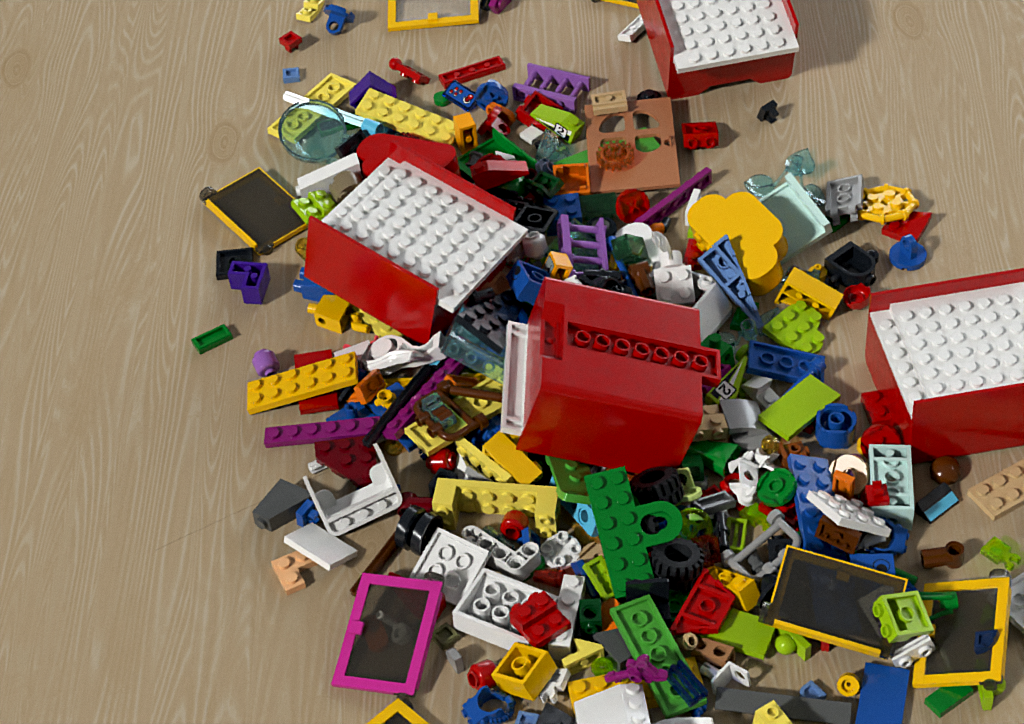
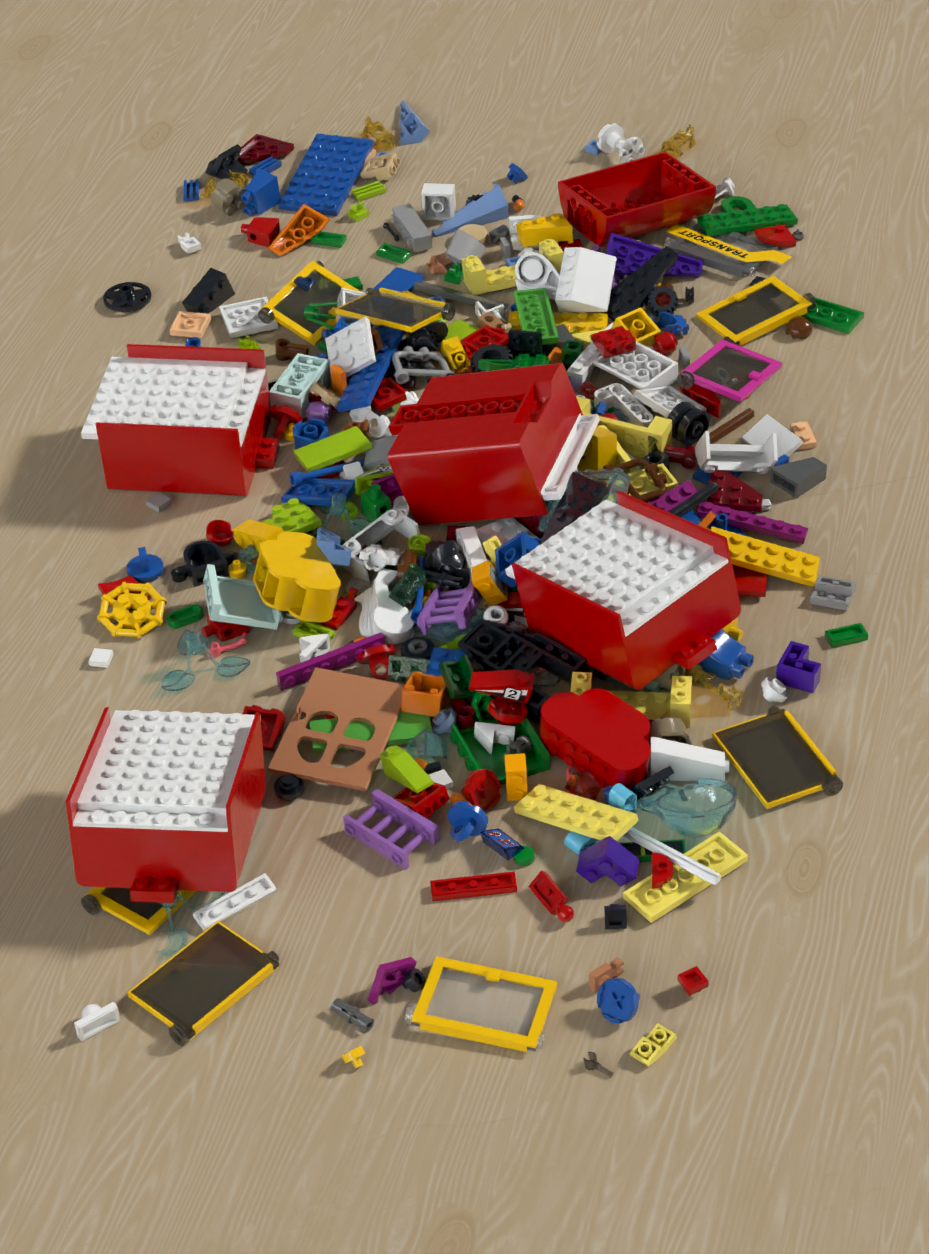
camera: 165 degrees left, 5 degrees down
(225, 257) = (812, 707): black tile -> none
(229, 378) = (833, 592): none -> light grey slope
(265, 363) = (795, 591): medium lavender head -> none
(271, 257) = (774, 690): none -> white plate
(291, 75) = (702, 941): medium blue tile -> none
(317, 204) = (712, 733): lime plate -> none
(330, 96) = (661, 870): none -> red plate
(355, 34) = (604, 973): none -> nougat plate
(357, 69) = (615, 916): none -> black tile
(385, 398) = (690, 516): yellow plate -> none
(438, 410) = (643, 477): clear light blue leg -> none
(609, 102) = (339, 769): tan plate -> none
(615, 155) = (367, 703): clear orange gear -> none
(637, 671) = (556, 297): magenta piece -> none
(692, 678) = (527, 294): clear blue tile -> none
(770, 444) = (372, 432): clear yellow plate -> none
(776, 487) = (389, 389): green tile -> none
(844, 197) = (164, 621): light grey tile -> none
(877, 494) = (319, 361): red tile -> none
(882, 166) = (101, 657): none -> white tile
(902, 616) = (358, 287): lime plate -> none

